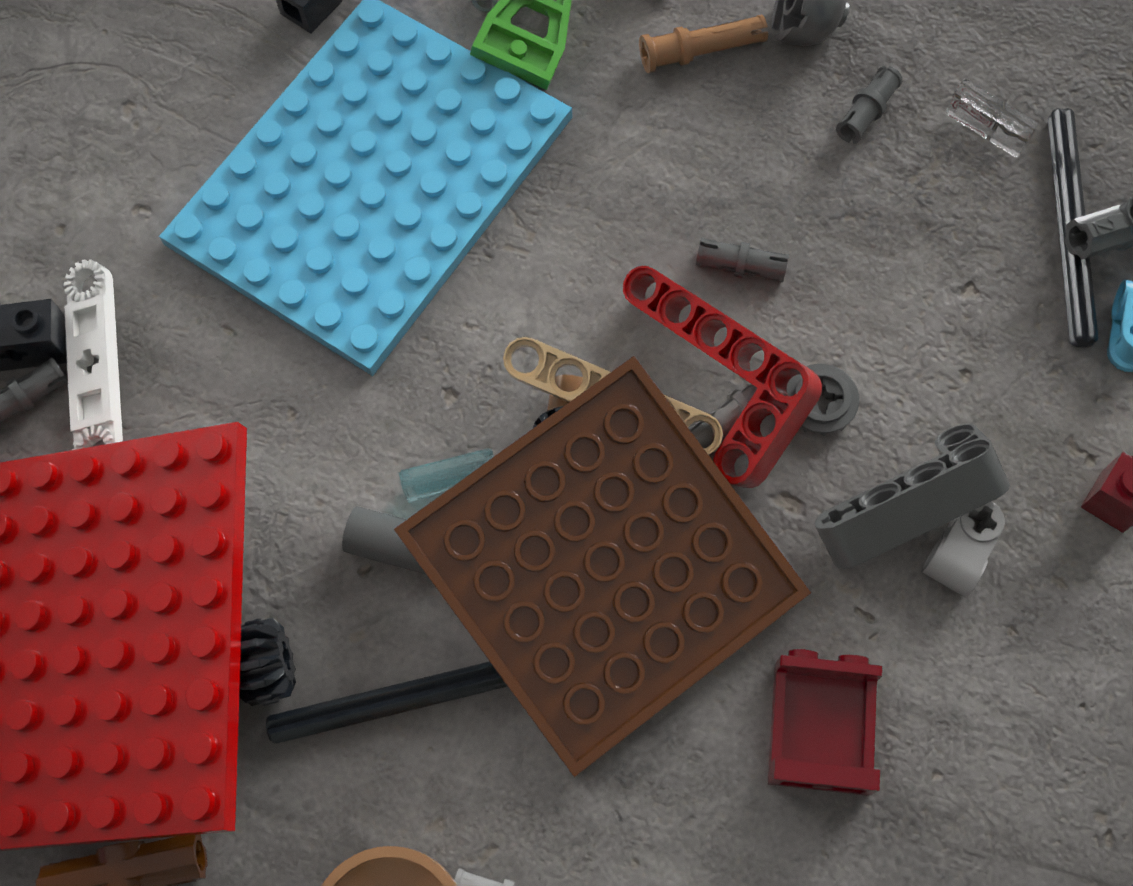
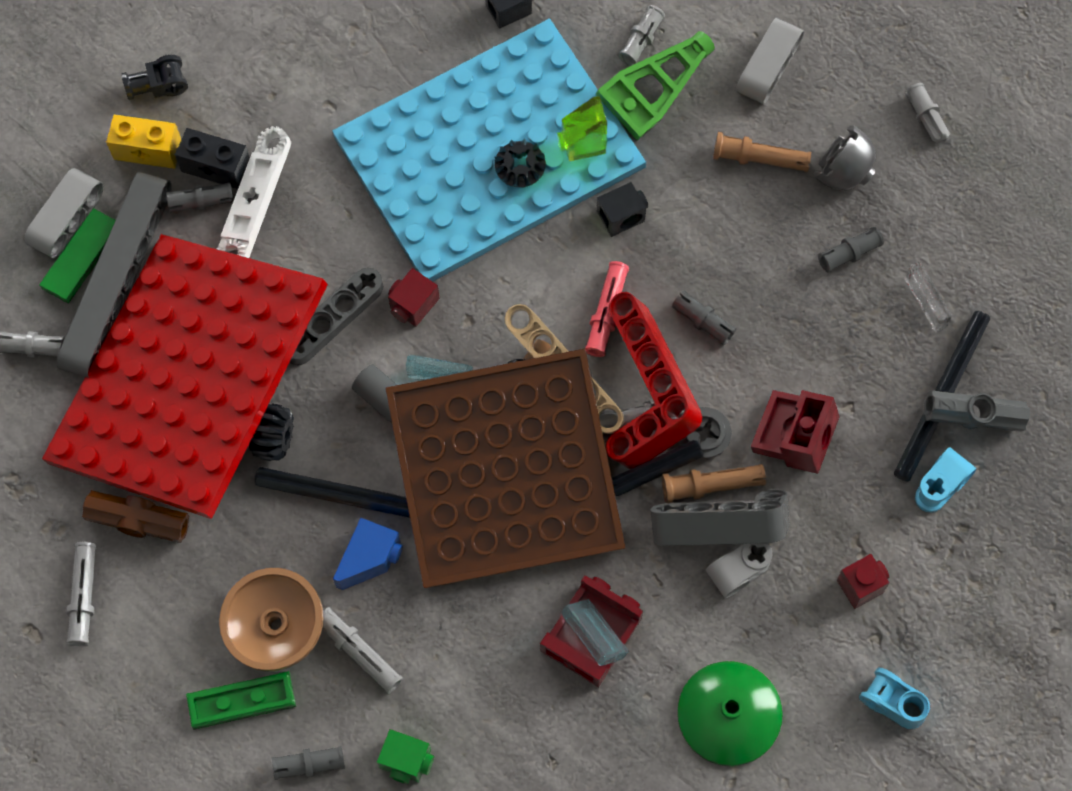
camera: 25 degrees right, 0 degrees up
(278, 469) = (337, 319): none -> dark grey beam
(365, 396) = (412, 297): none -> dark red brick
(431, 184) = (520, 175): none -> black gear
(475, 766) = (367, 554): none -> blue slope
(485, 93) = (584, 131): none -> clear neon green slope
(573, 174) = (622, 208): none -> black brick
(609, 258) = (603, 320): none -> coral pin
(793, 465) = (656, 467): none -> black axle
(834, 726) = (594, 632): none -> clear light blue tile
(851, 466) = (697, 484): none -> medium nougat pin
(954, 338) = (797, 429): none -> dark red brick
(1023, 749) = (724, 736): none -> green dish

